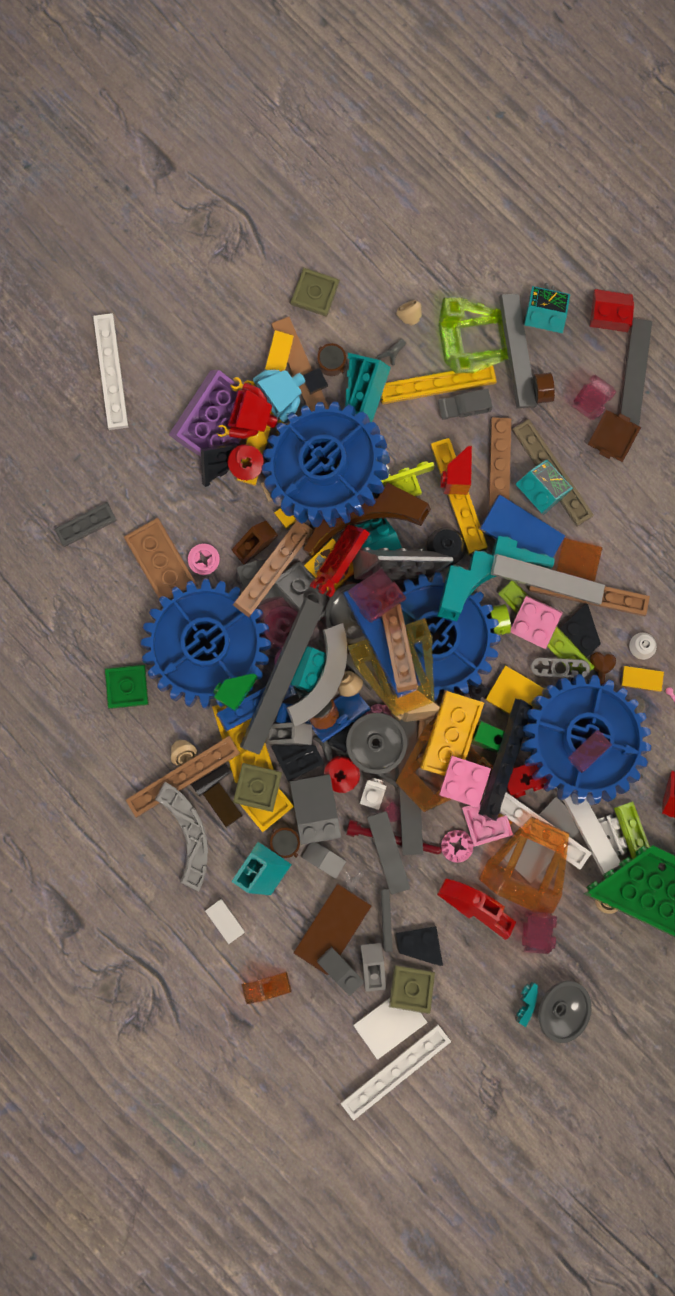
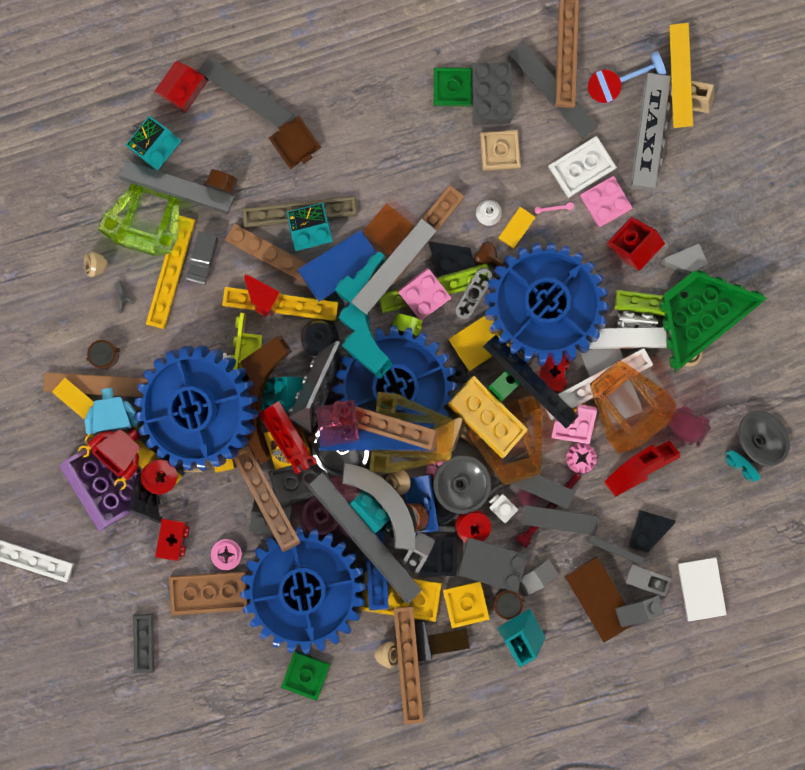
camera: 55 degrees left, 5 degrees up
(193, 832) = (463, 679): light grey tile -> none
(202, 498) = (164, 546): none -> red brick
(225, 921) = (549, 687): white slope -> none
(234, 690) = (359, 587): green slope -> none
(254, 541) = (233, 502): reddish brown slope -> none
(257, 787) = (449, 605): olive tile -> none
(266, 988) = (622, 680): clear orange slope -> none
(283, 715) = (397, 553): blue tile -> none
(315, 292) = (33, 338): olive tile -> none
(315, 381) = (115, 378): black tile -> none
(365, 383) = (141, 336): teal wedge -> none
(395, 1072) = (744, 604): white plate -> none
(411, 989) = (683, 557): olive tile -> none
(464, 781) = (533, 426): bright pink plate -> none
(589, 751) = (560, 307): clear pink tile -> none
(593, 397) = (252, 143): clear pink brick -> none

